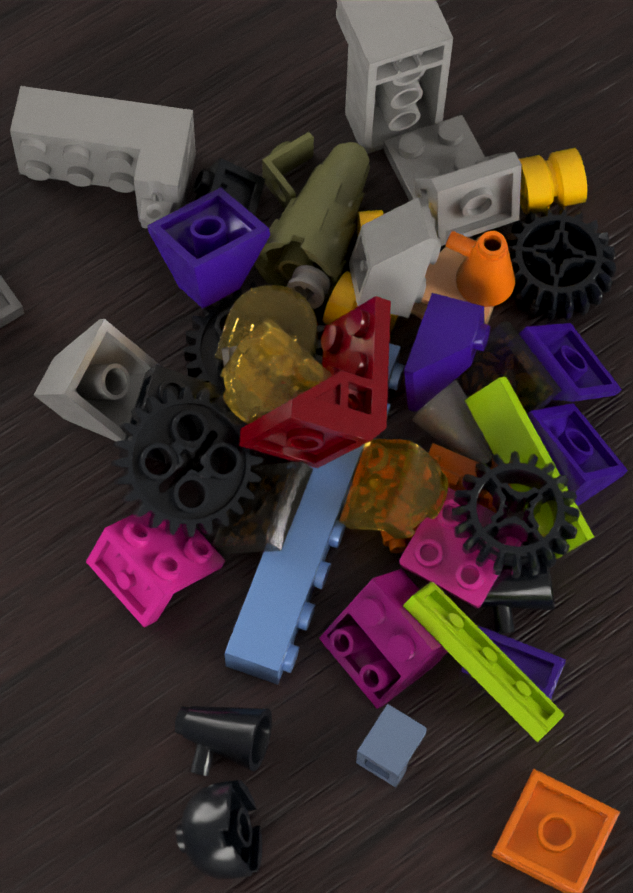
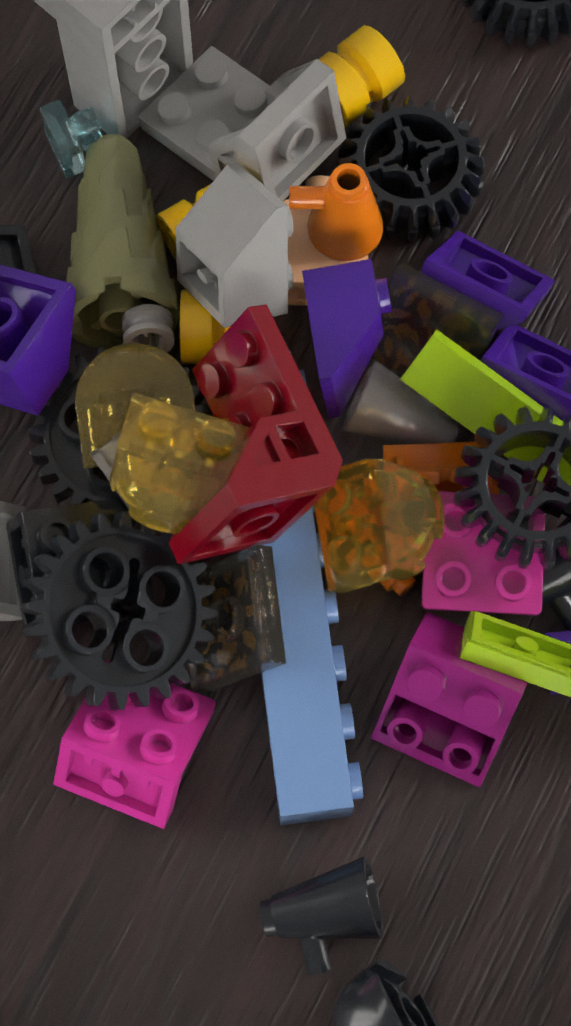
camera: 25 degrees left, 5 degrees up
(281, 161) = (32, 195): olive bracket -> none
(329, 131) = (70, 135): none -> clear light blue tile
(390, 745) = (524, 824): sand blue panel -> none

